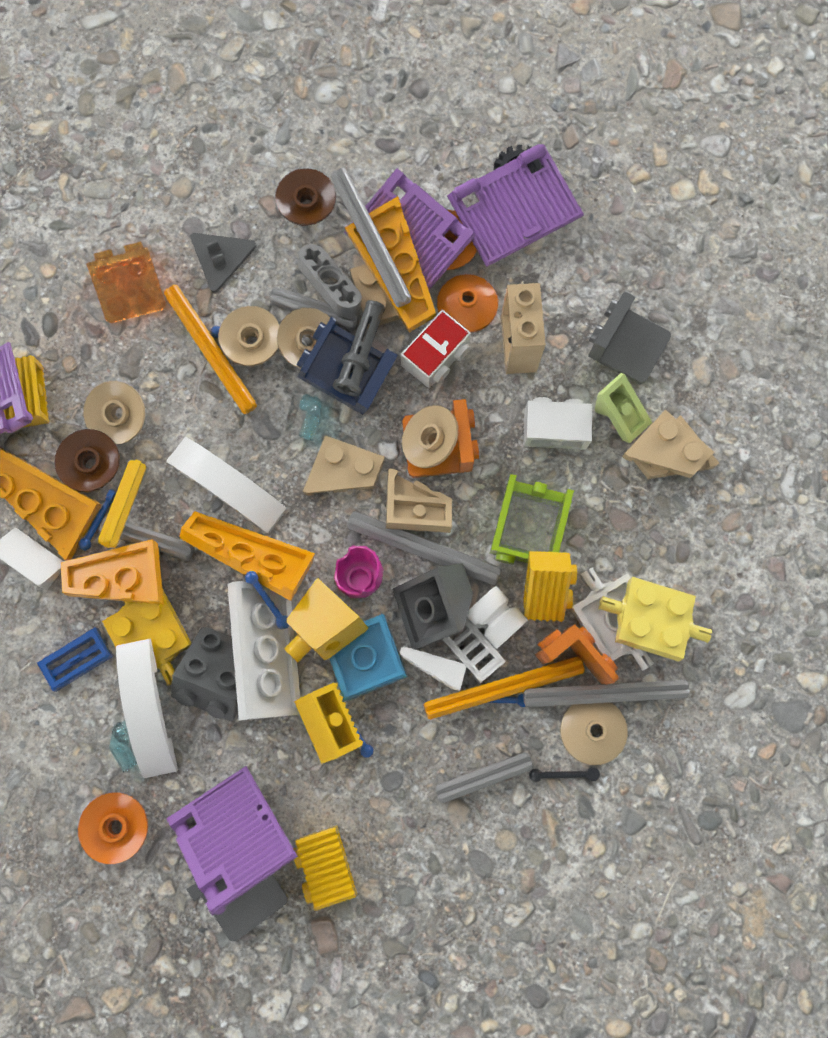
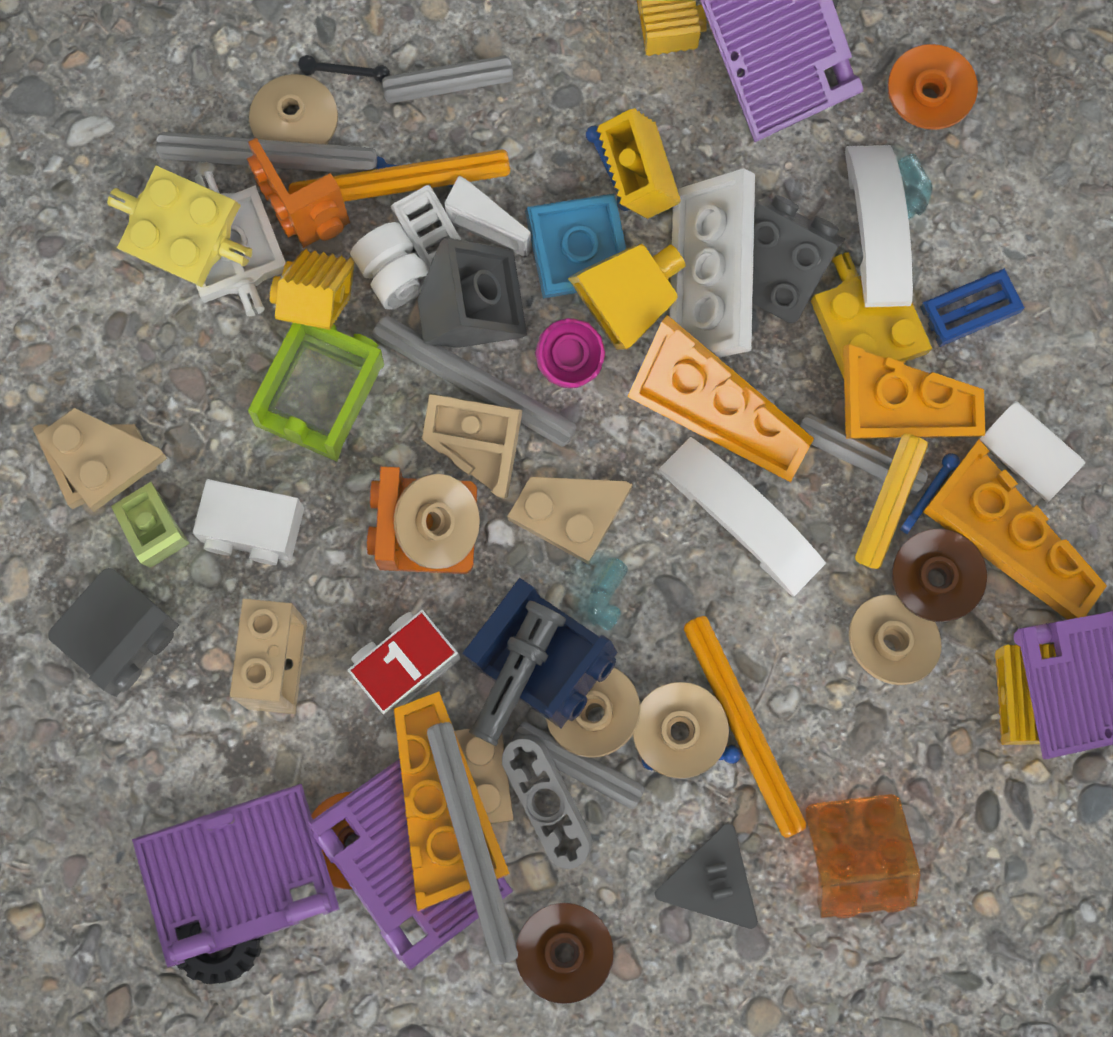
camera: 170 degrees left, 0 degrees up
(252, 578) = (683, 304): blue hinge -> none
(471, 315) = (359, 758): orange dish -> none

